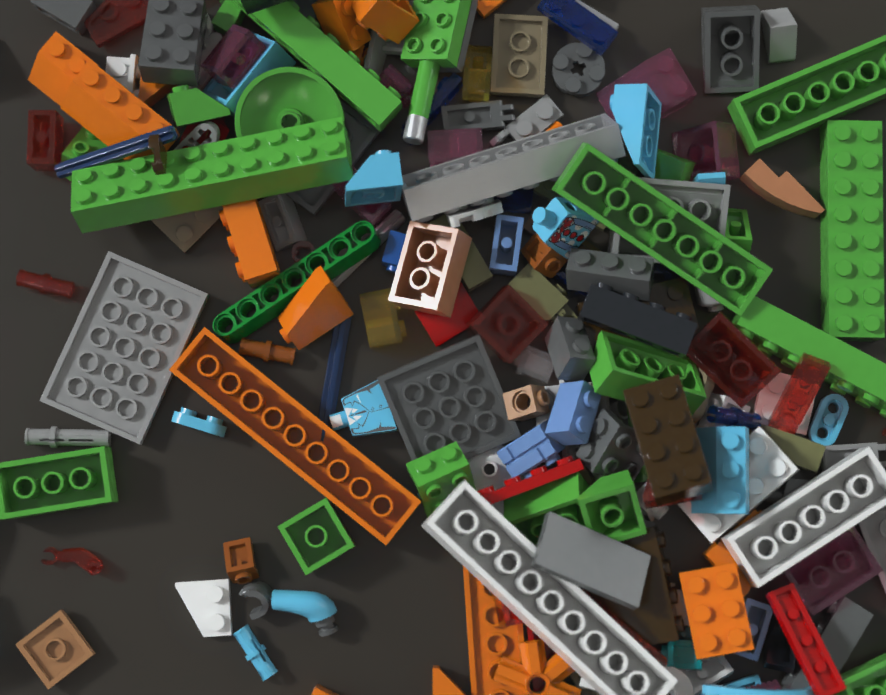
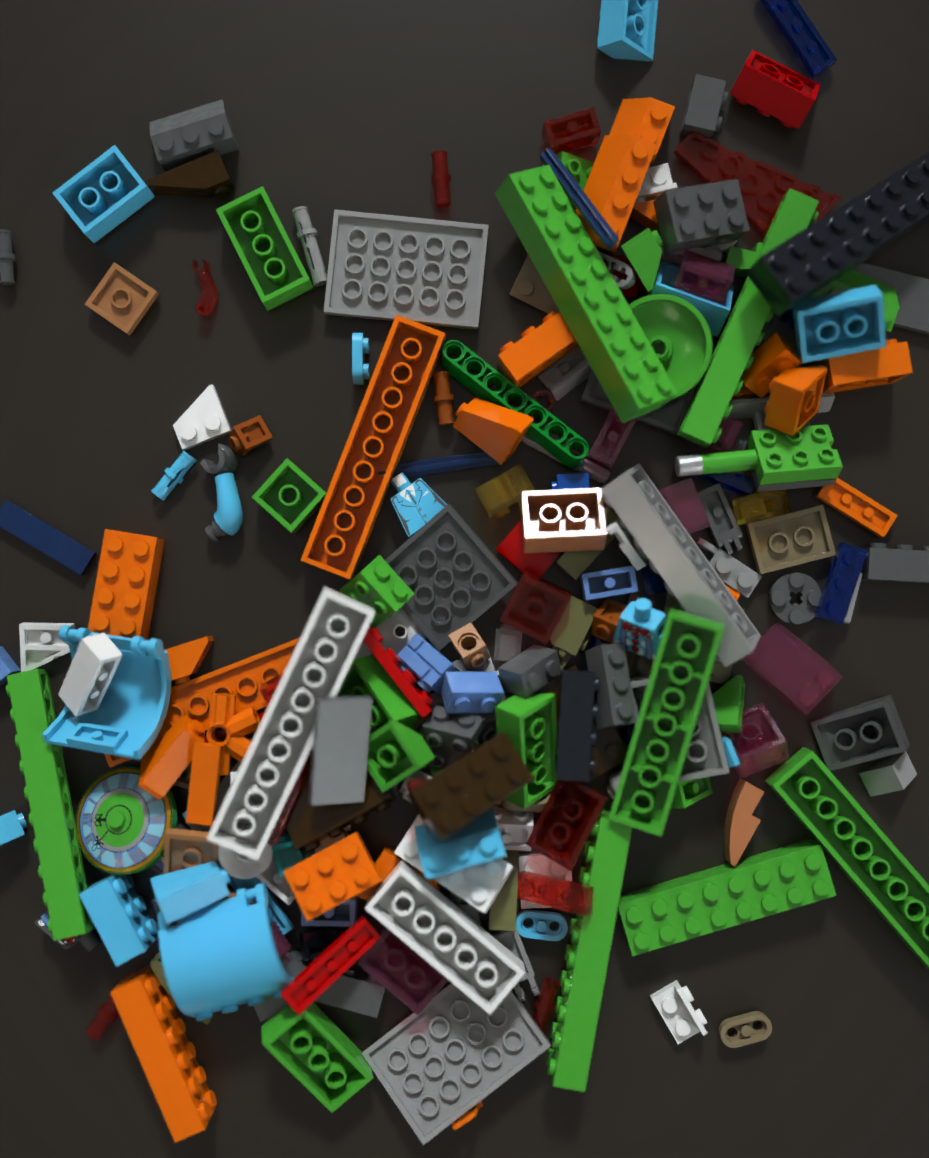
camera: 75 degrees right, 5 degrees up
(160, 154) = (587, 237): dark brown tile -> none
(376, 180) = (627, 443): medium azure slope -> none
(638, 117) = (765, 668): medium azure slope -> none
(733, 417) = (514, 839): clear blue pin -> none

